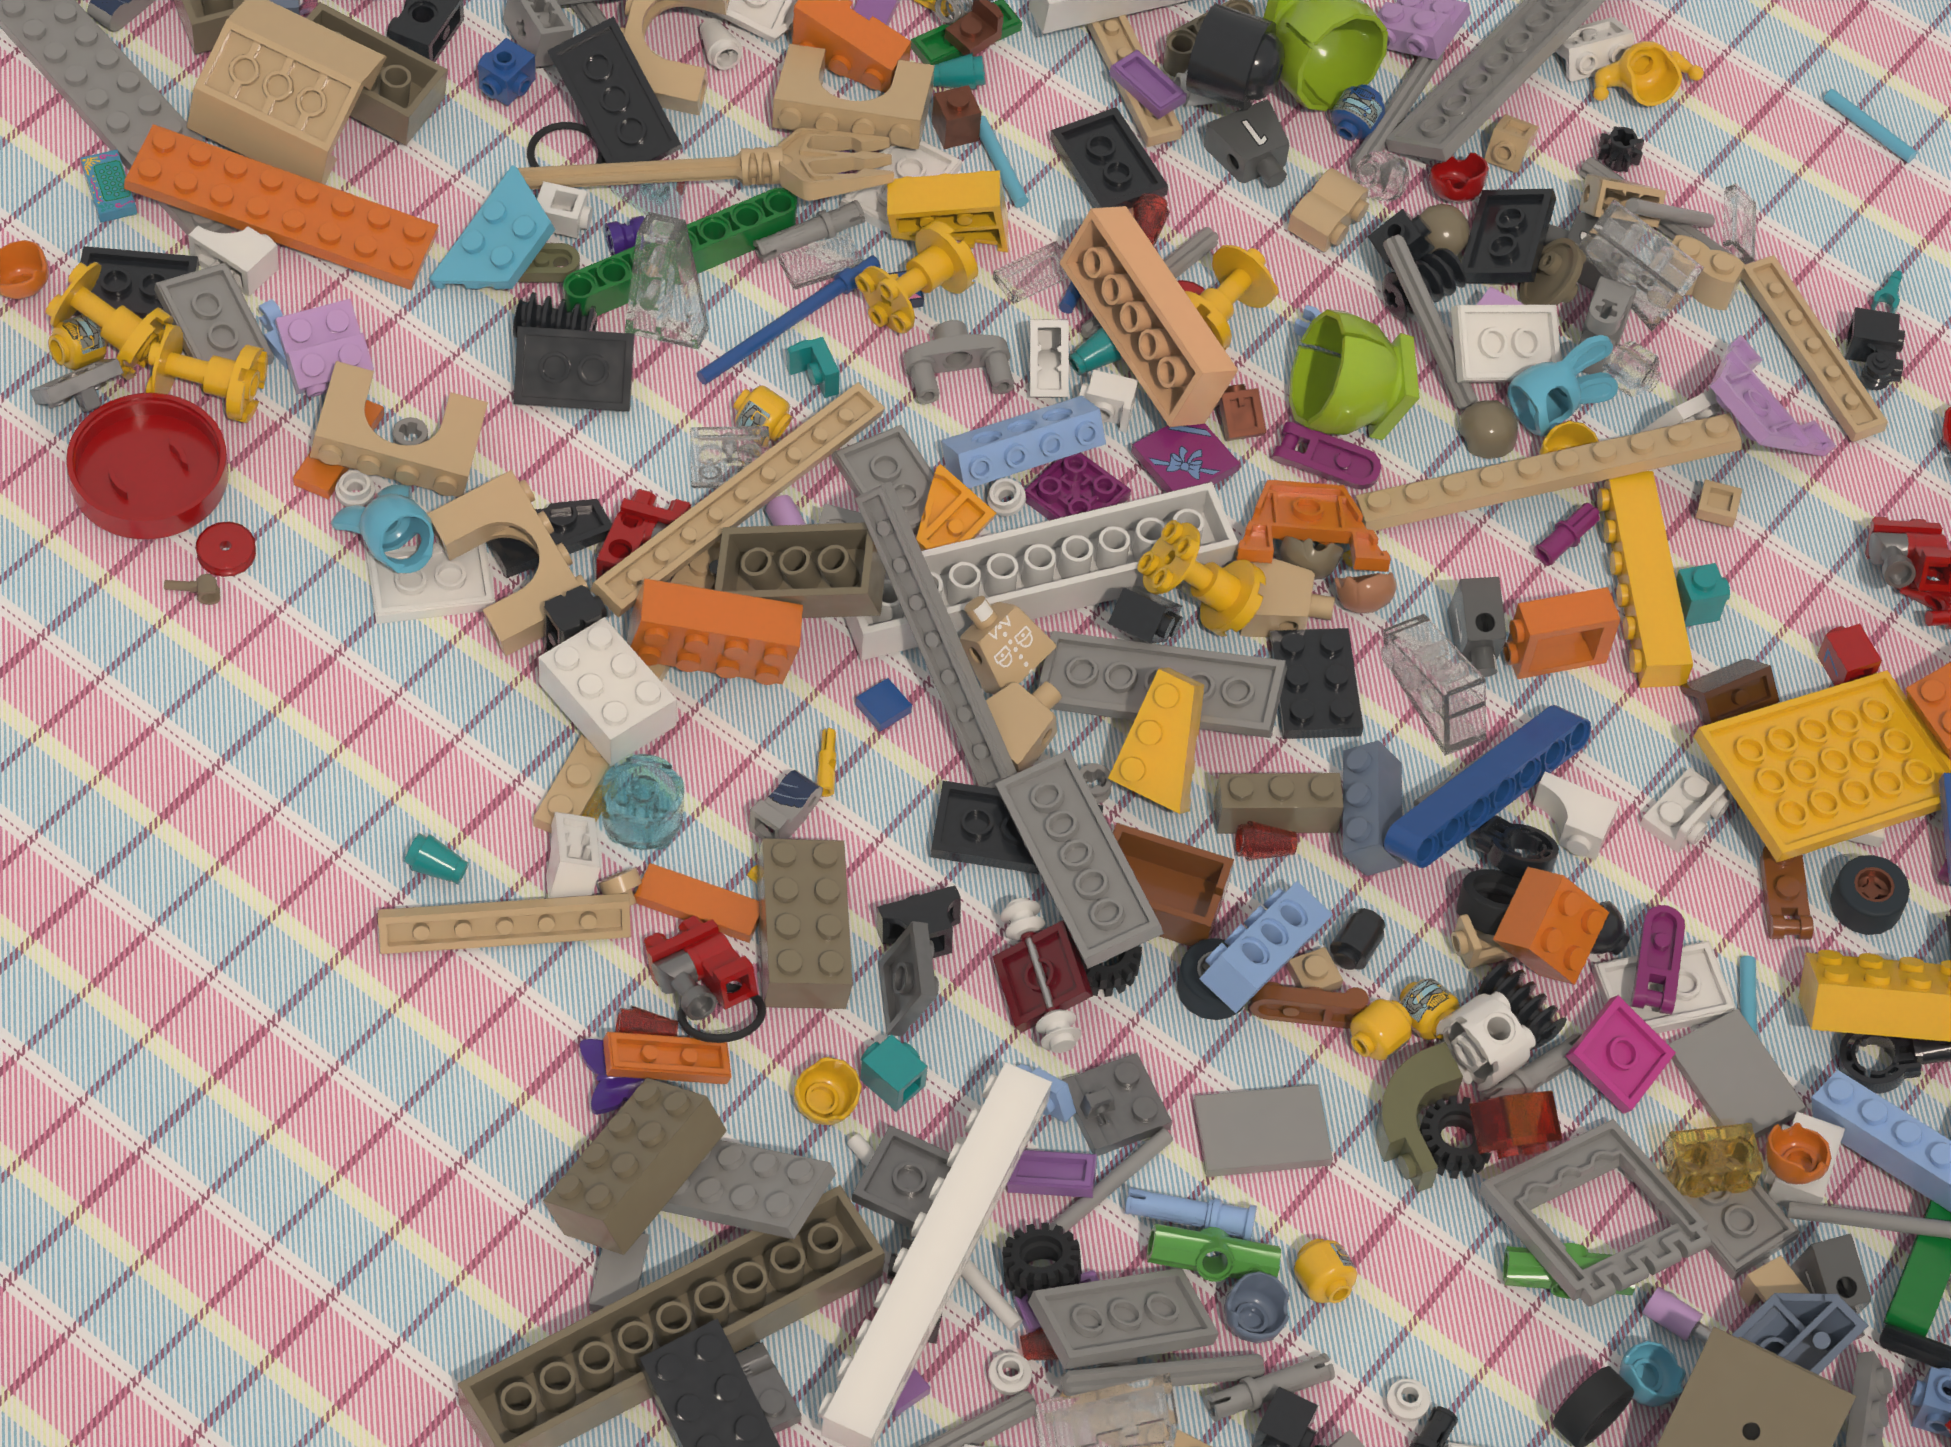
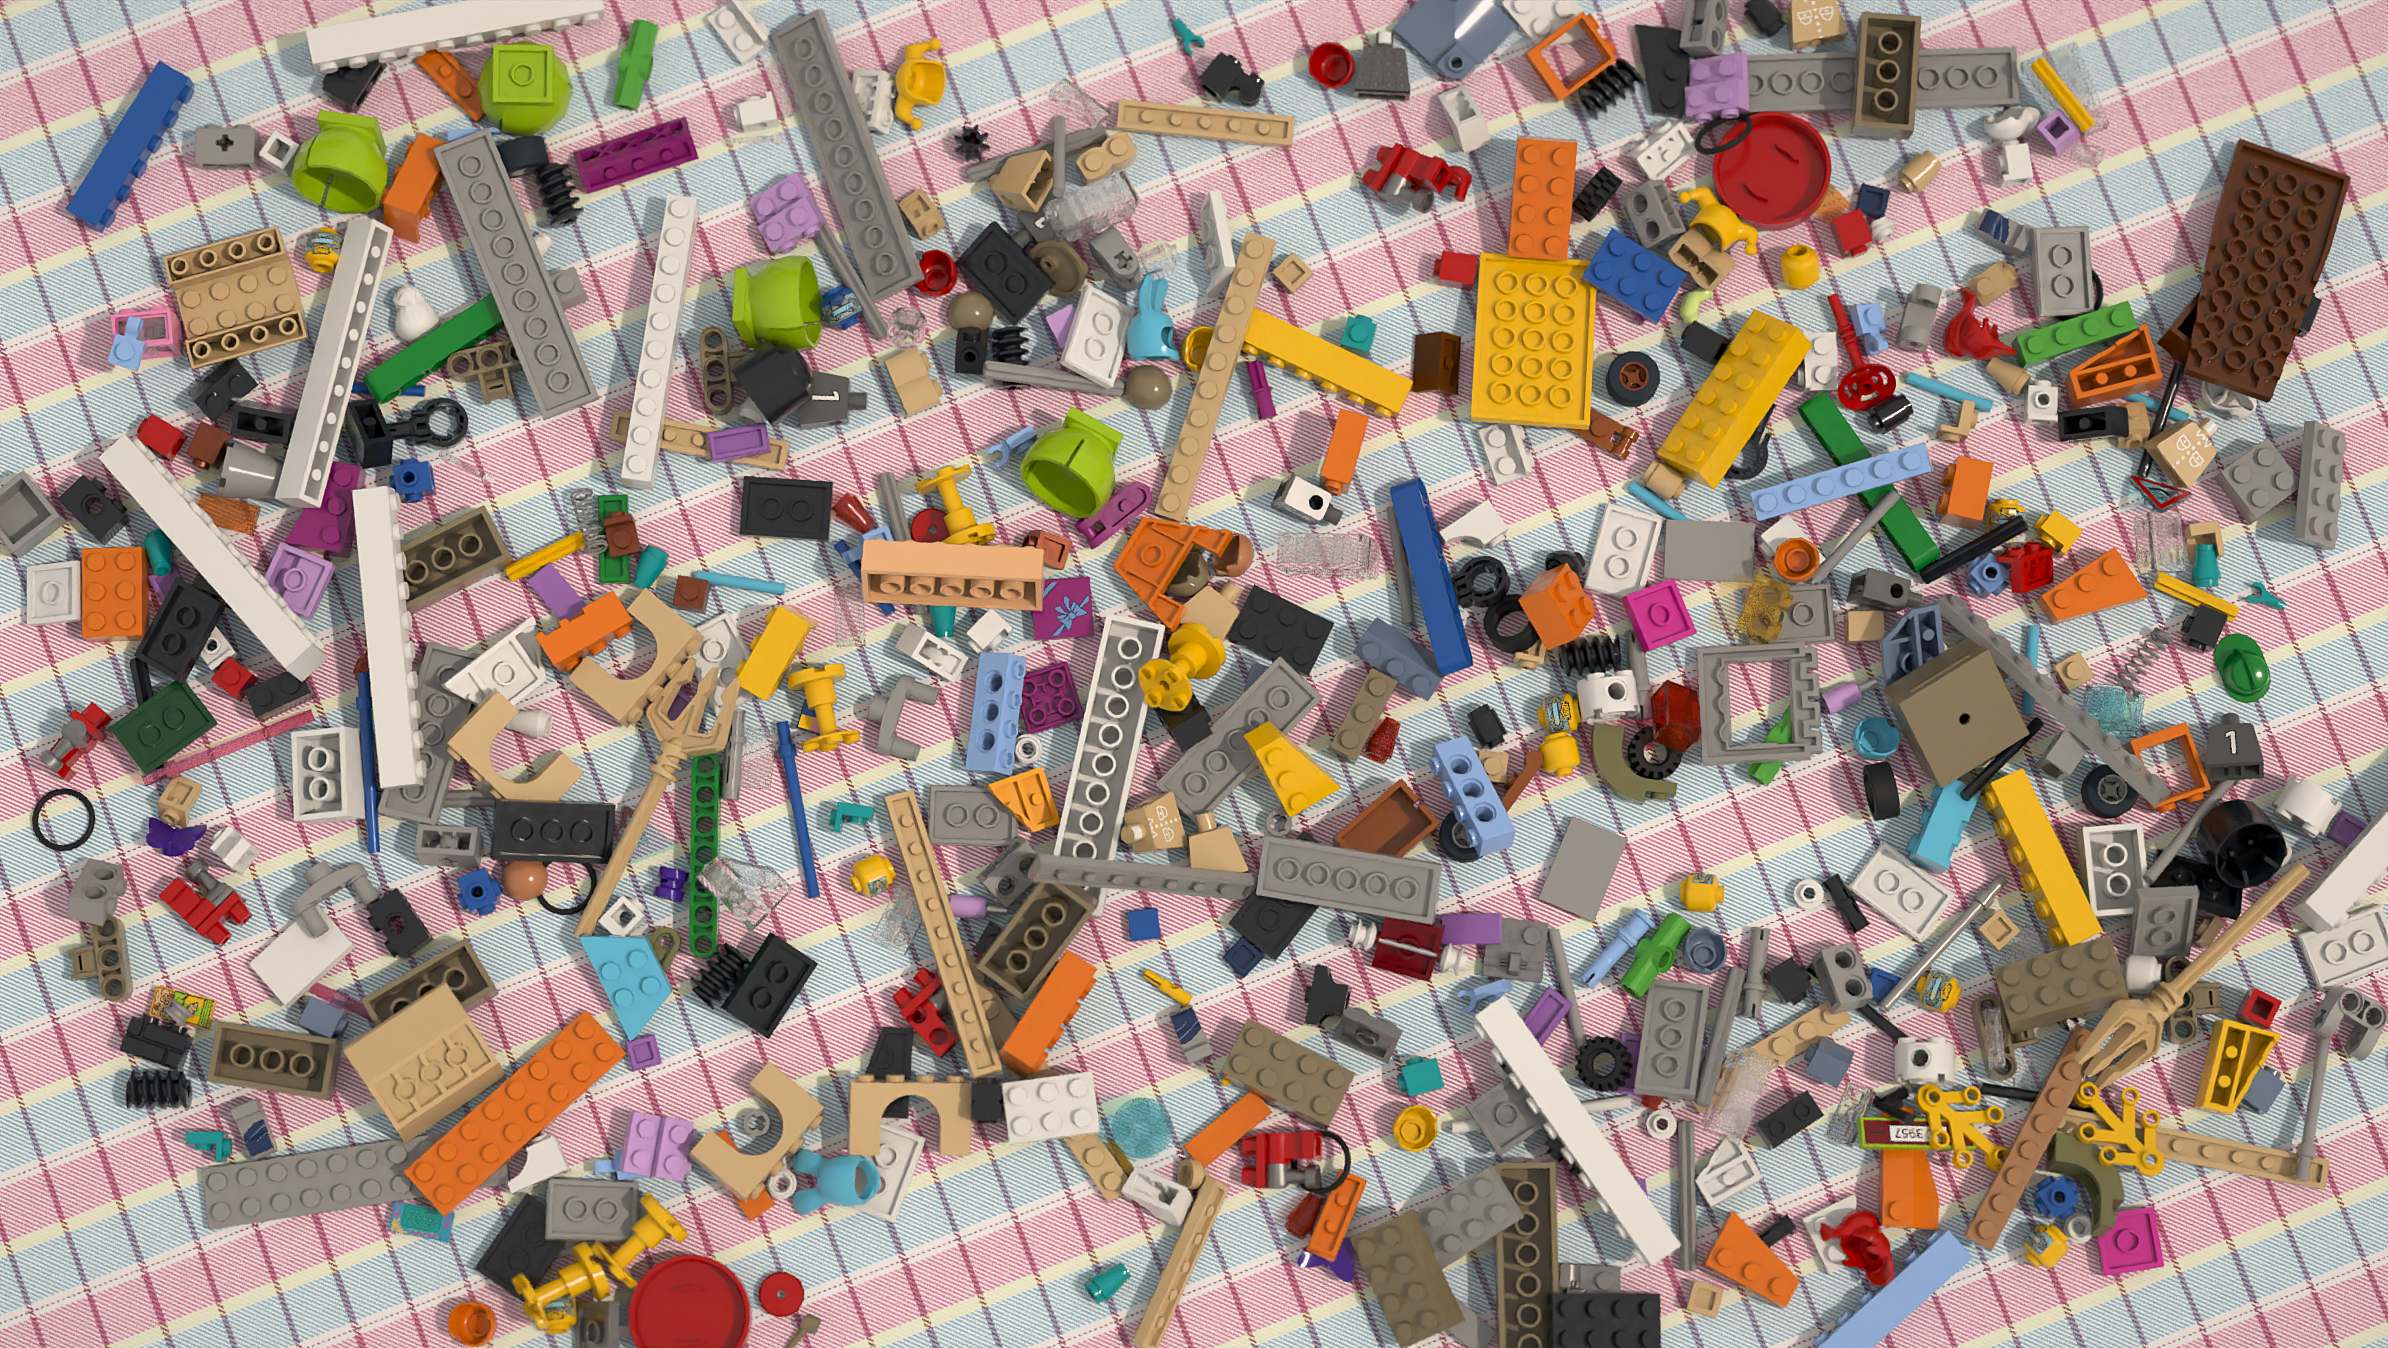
camera: 55 degrees left, 25 degrees up
(424, 301) = (643, 1052): none -> medium lavender tile
(548, 108) = (524, 879): none -> nougat hair
(913, 822) = (1243, 957): none -> dark blue tile
(1110, 1039) = (1472, 929): none -> medium lavender tile
(1659, 959) = (1608, 547): magenta plate -> none
(1757, 409) = (1244, 208): lavender wing -> none
(1780, 985) = (1664, 480): none -> tan brick

